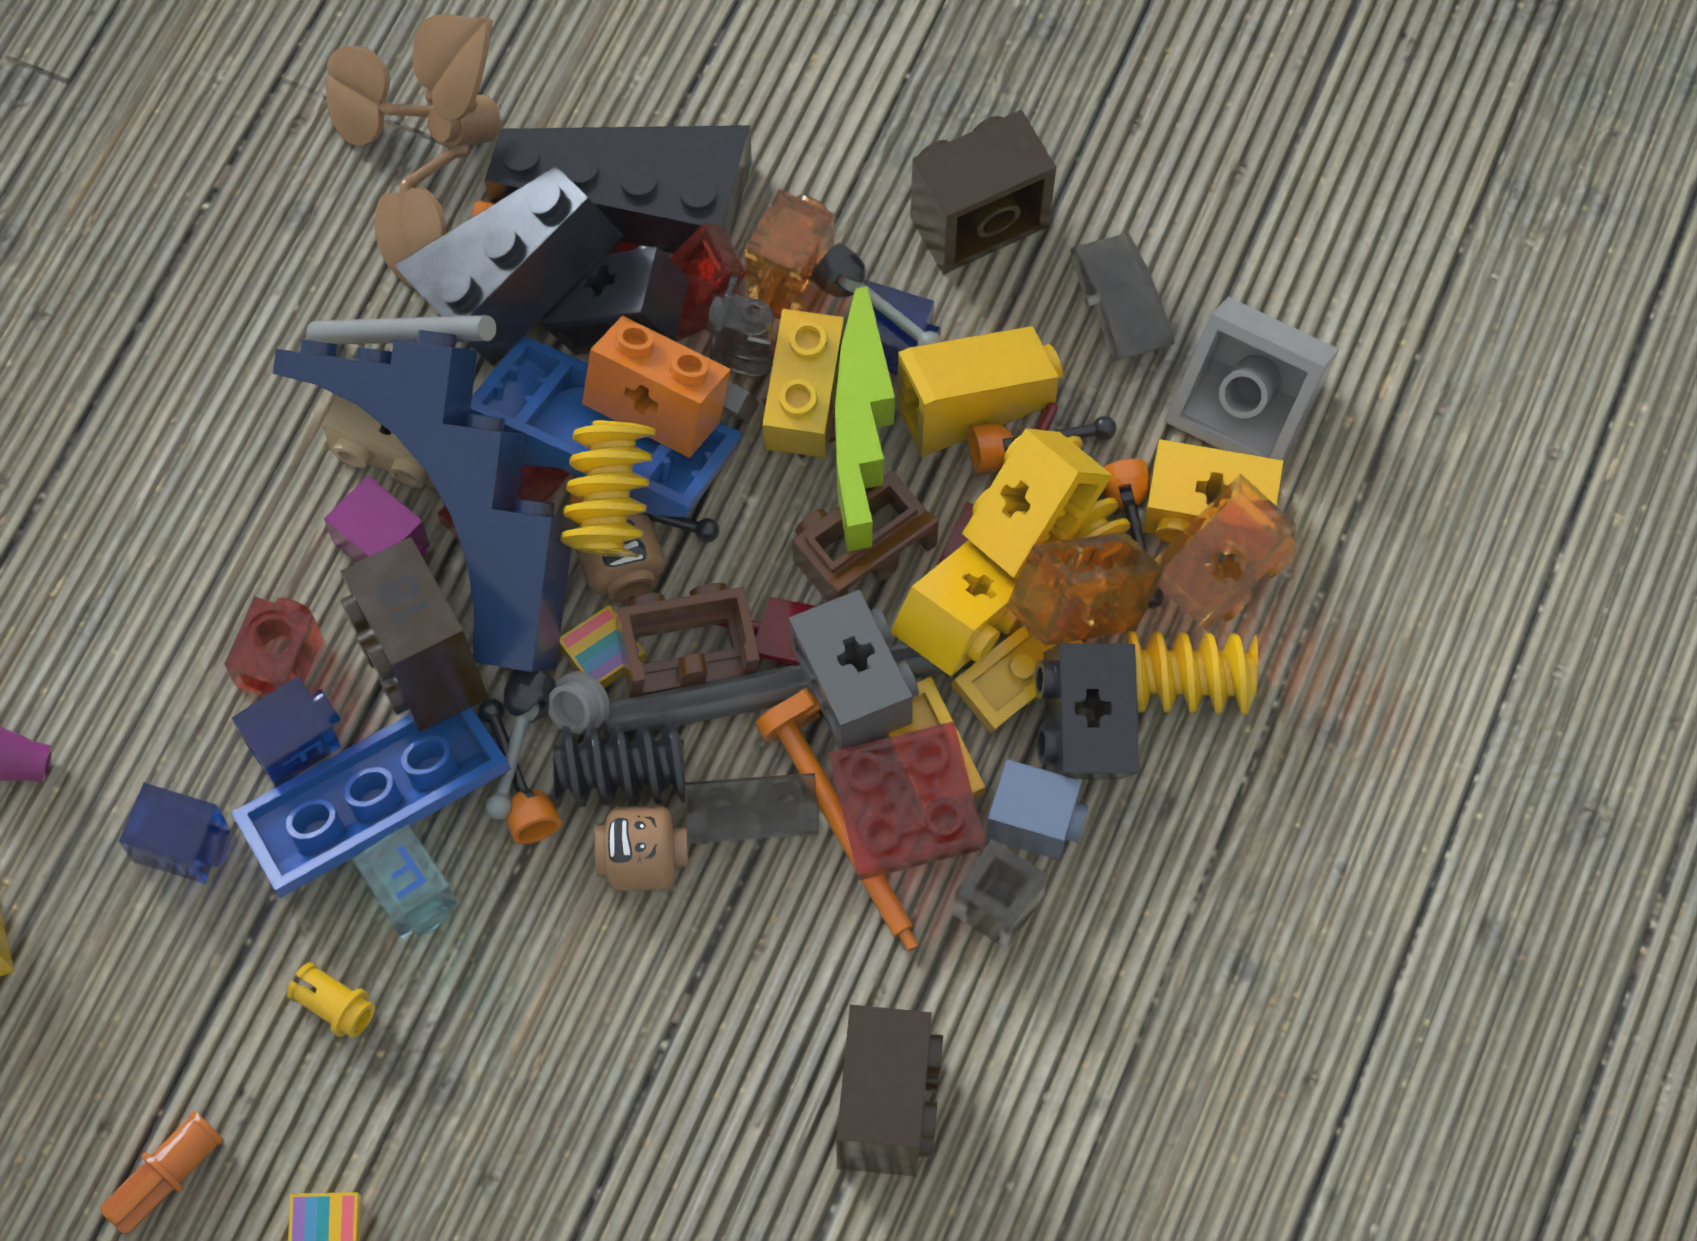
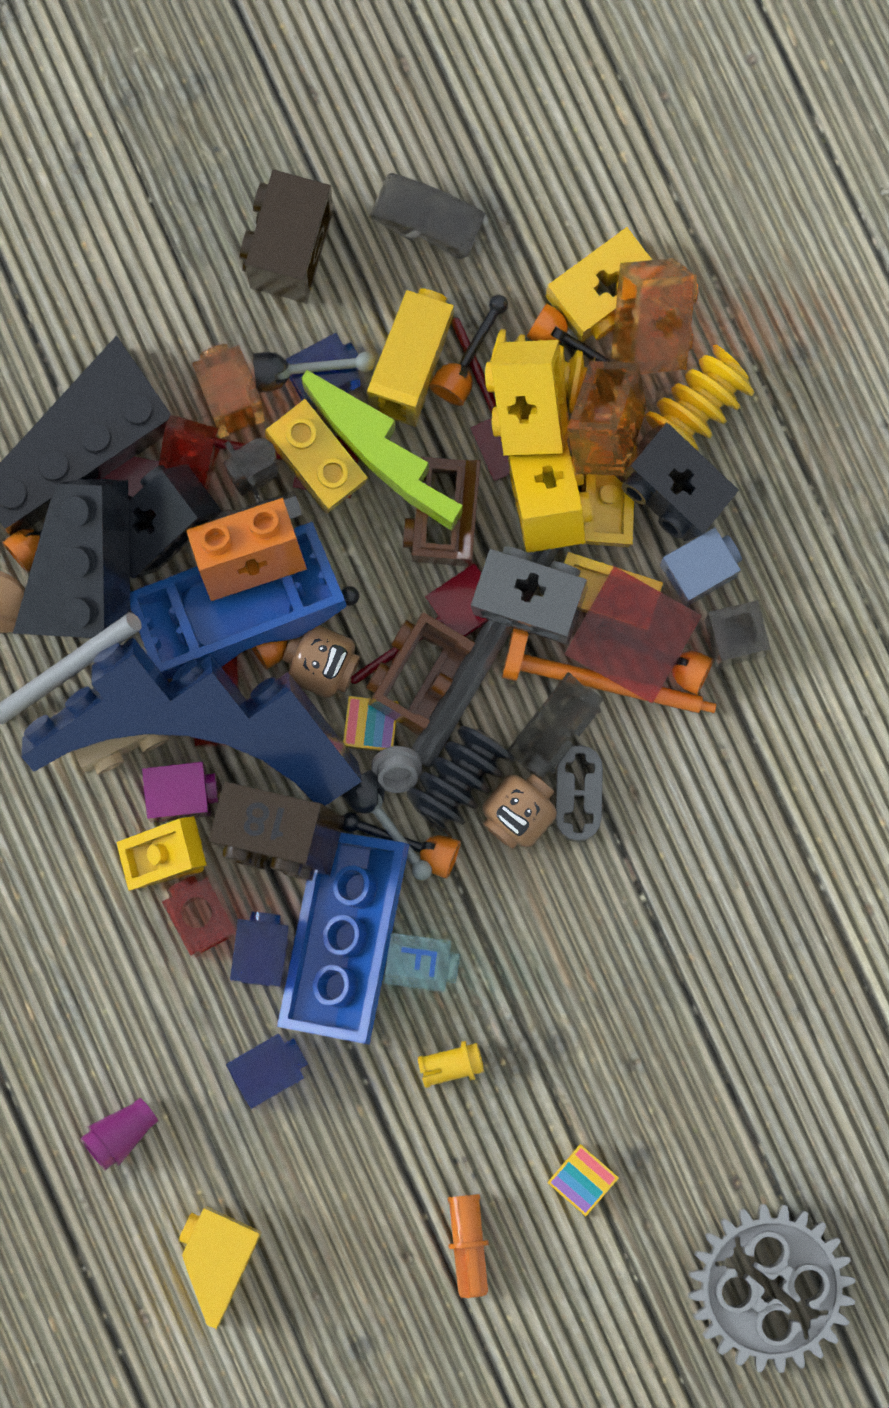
camera: 50 degrees left, 15 degrees up
(307, 569) = (162, 854): none -> yellow slope
(606, 487) = (298, 637): yellow piece -> none
(719, 903) = (591, 794): none -> dark grey beam
(884, 1082) = (797, 801): dark brown brick -> none
(927, 892) = (692, 670): none -> orange hinge
(1250, 382) = (554, 193): light grey slope -> none

